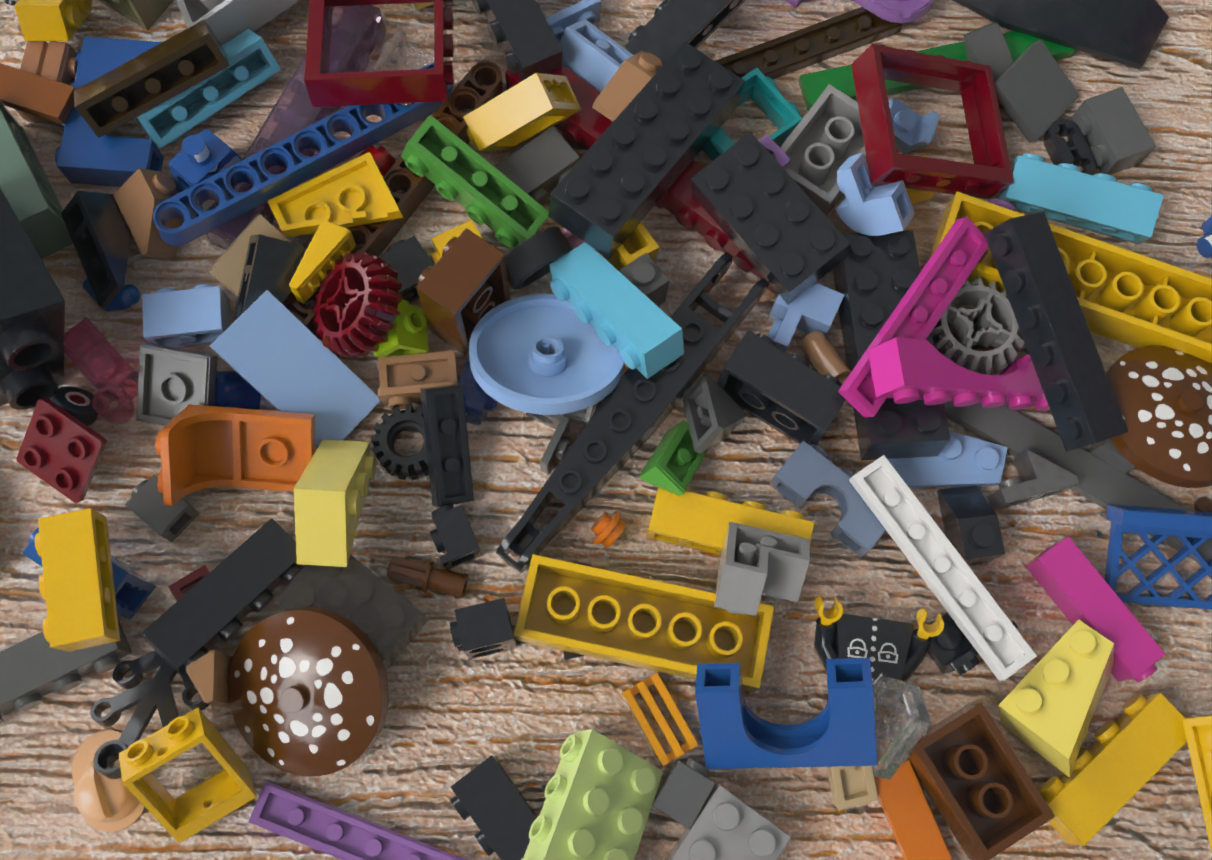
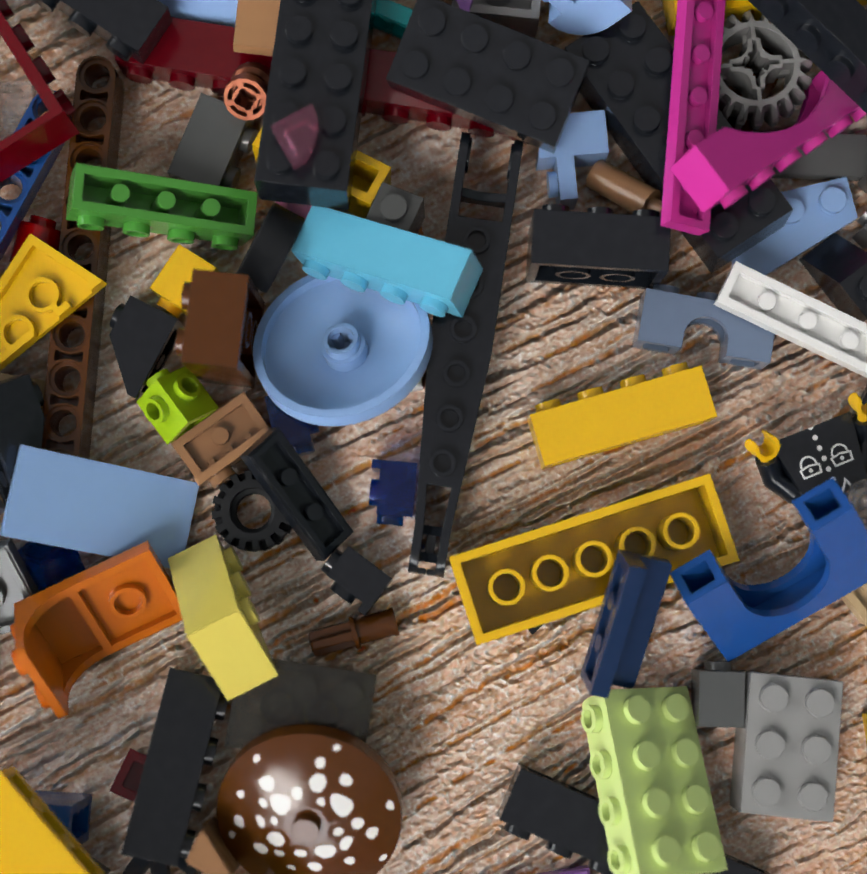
camera: 25 degrees left, 10 degrees up
(164, 520) = (44, 726): dark grey brick -> none
(327, 246) = (54, 368): yellow slope -> none
(357, 304) = (120, 405): dark red gear -> none
(483, 629) = (443, 656): black brick -> none
(520, 485) = (393, 491): none -> clear blue brick
(521, 112) = (164, 100): yellow window -> none
(559, 443) = (405, 430): dark grey bracket -> none
(587, 132) = (253, 81): none -> copper wheel
(600, 176) = (297, 135): none -> clear pink tile
(608, 529) = (502, 484): orange plate -> none
(641, 684) = (625, 622): none -> dark blue panel
(673, 461) = (529, 377): bright green slope -> none
(677, 750) = (689, 658): light orange tile -> none
(710, 413) = (537, 310): dark grey slope -> none
(759, 564) = (672, 442): light grey brick -> none

